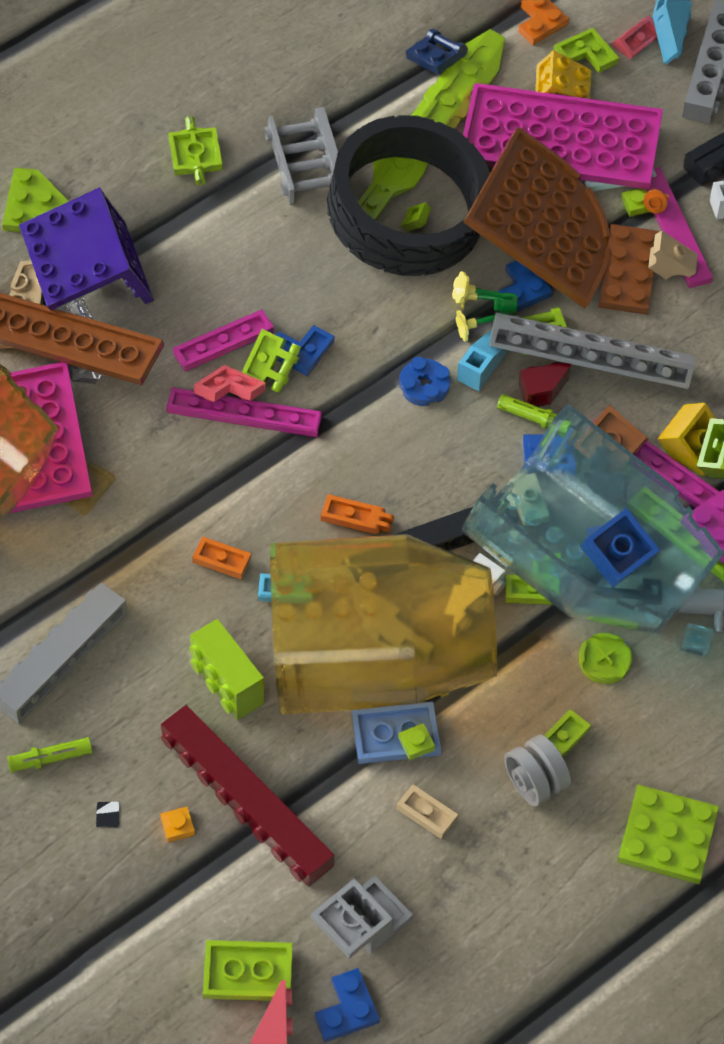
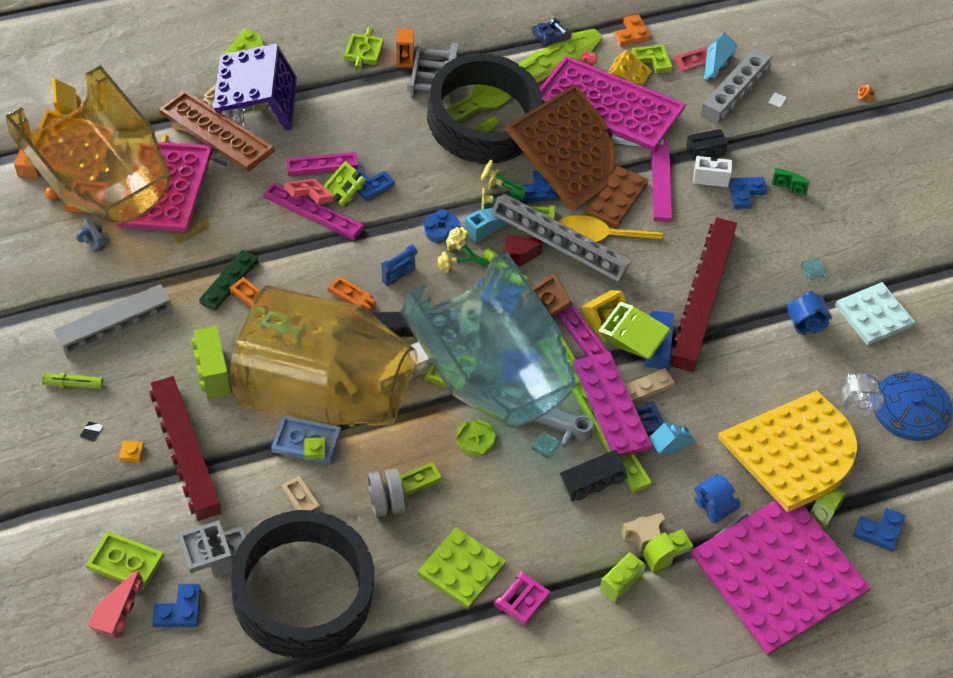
camera: 20 degrees right, 5 degrees down
(181, 546) = (220, 289): none -> dark green plate
(256, 134) = (405, 47): none -> orange brick
(395, 464) = (399, 265): none -> blue plate
(466, 396) = (457, 241): none -> light yellow plant
(507, 74) = (590, 56): none -> coral plate
(518, 851) = (302, 527): none -> black tyre
(619, 547) = (511, 363): blue brick -> none
(626, 324) = (599, 231): none -> yellow piece
(634, 201) = (643, 157): lime plate -> none
(655, 201) = (653, 158): orange plate -> none
(671, 257) = (646, 195): tan brick -> none

